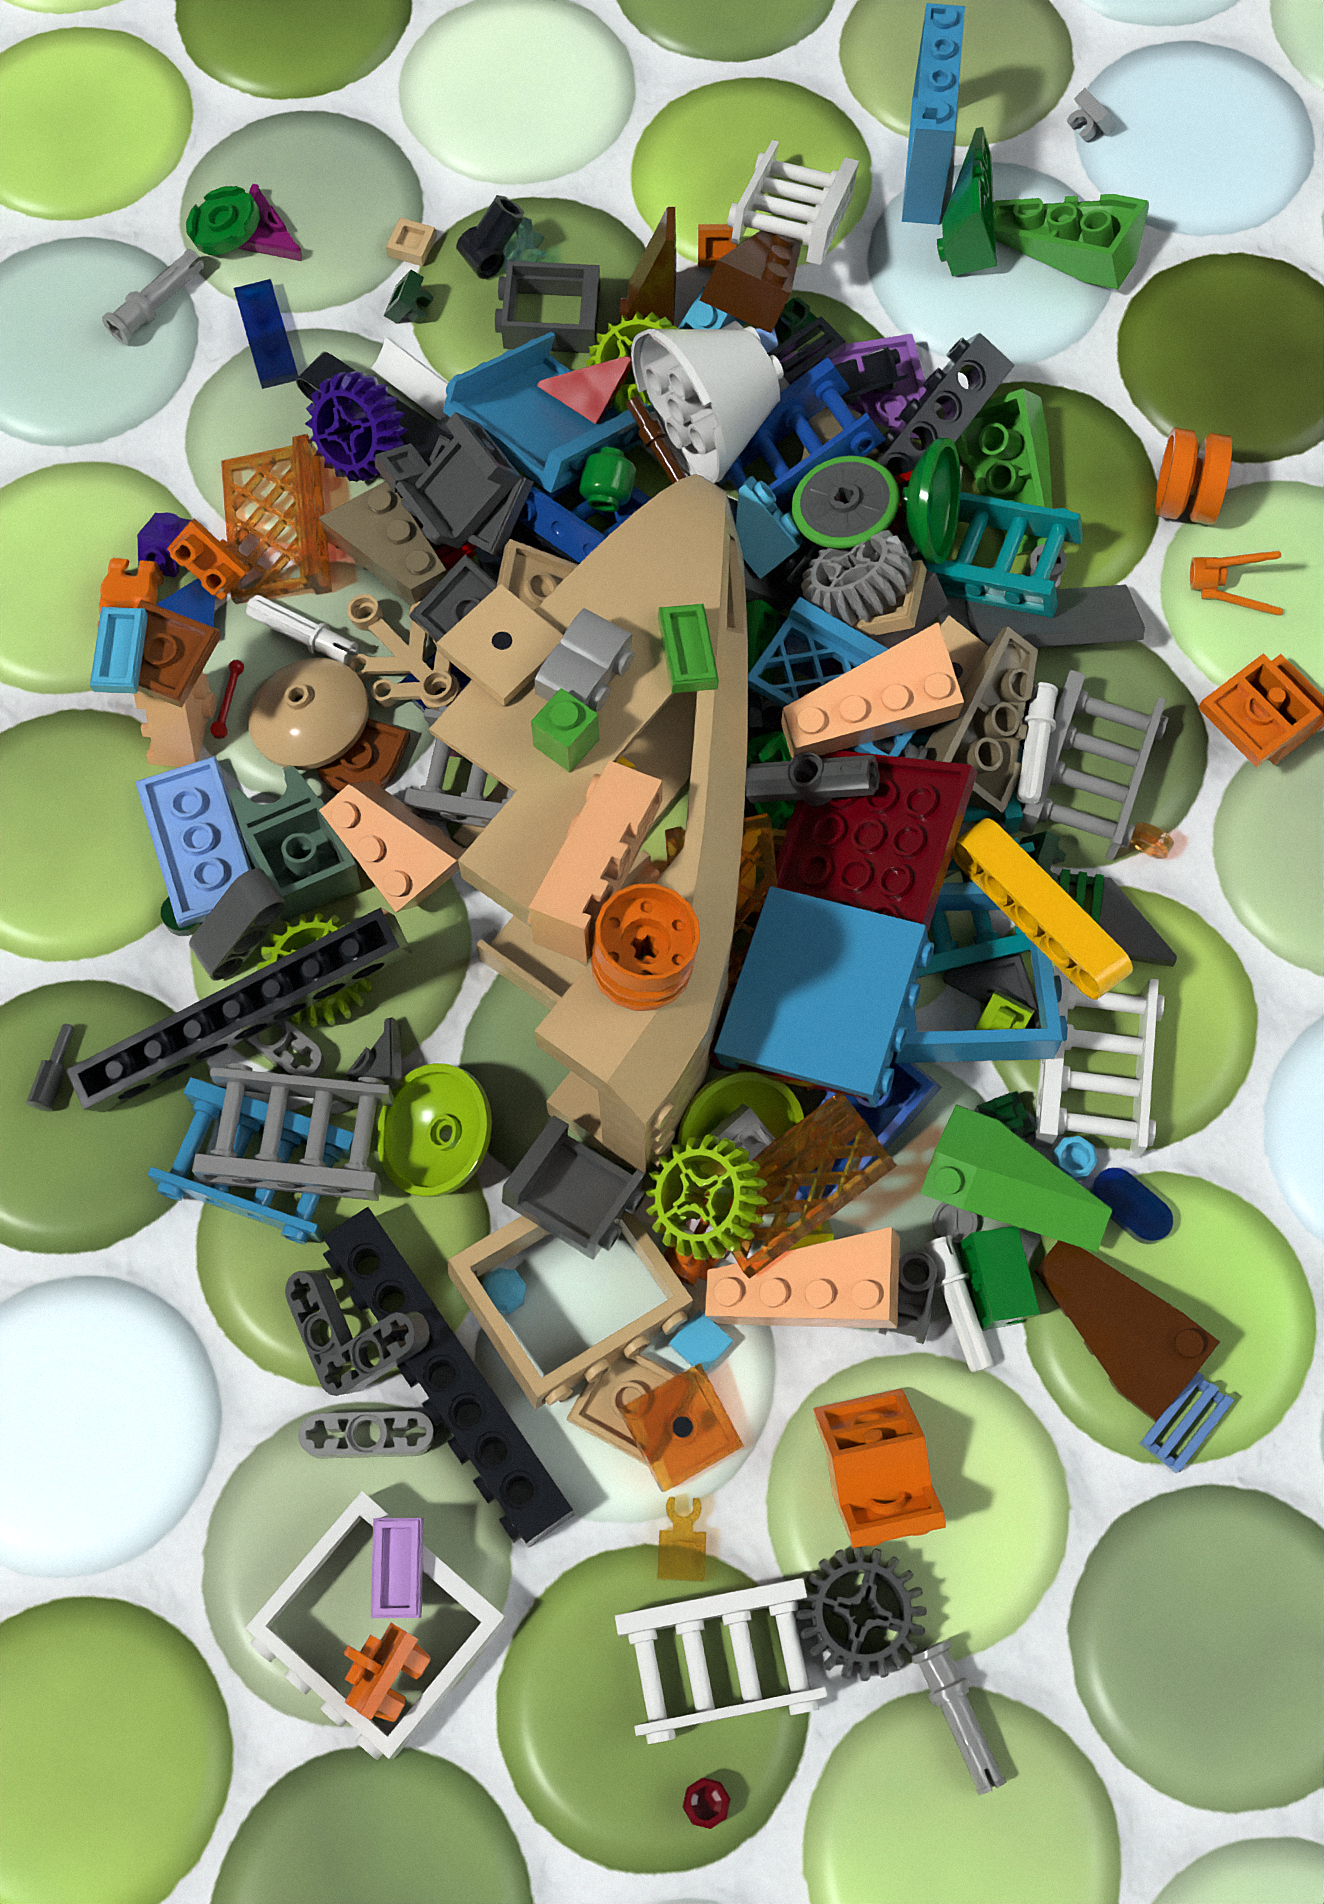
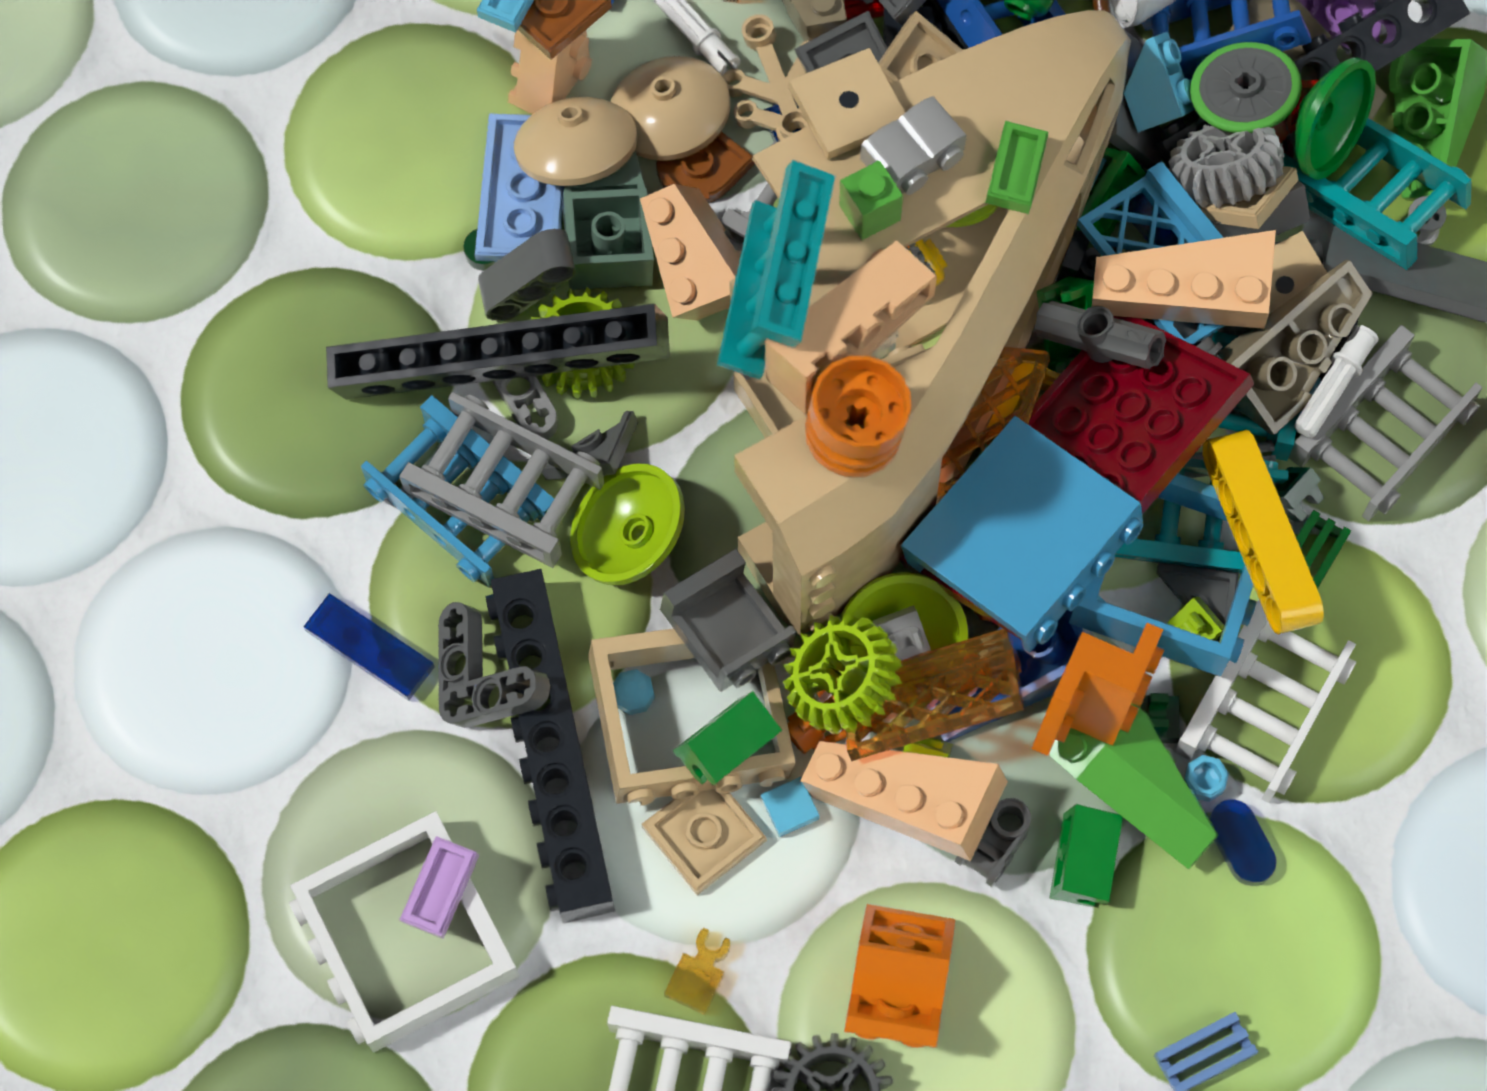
camera: 25 degrees right, 0 degrees up
(50, 1073) = (313, 347): dark grey axle -> none
(219, 728) = (620, 43): red hinge -> none
(225, 1349) = (369, 646): none -> clear blue tile
(232, 778) = (575, 141): none -> tan dish
(332, 1424) = (495, 769): light grey beam -> none
(377, 1669) = (408, 956): orange hips -> none
(507, 833) = (776, 270): none -> teal fence
(622, 1305) = (728, 739): none -> green hinge
(680, 1427) = (739, 871): clear orange tile -> none
(952, 1282) = (1040, 864): white axle -> none
(954, 1222) = (1066, 791): light grey piece -> none
(956, 1116) = (1099, 689): none -> orange bracket
(1130, 928) = (1350, 592): dark grey tile -> none
(1133, 1333) = (1188, 952): reddish brown wedge -> none
(1151, 840) = (1411, 515): clear orange tile -> none

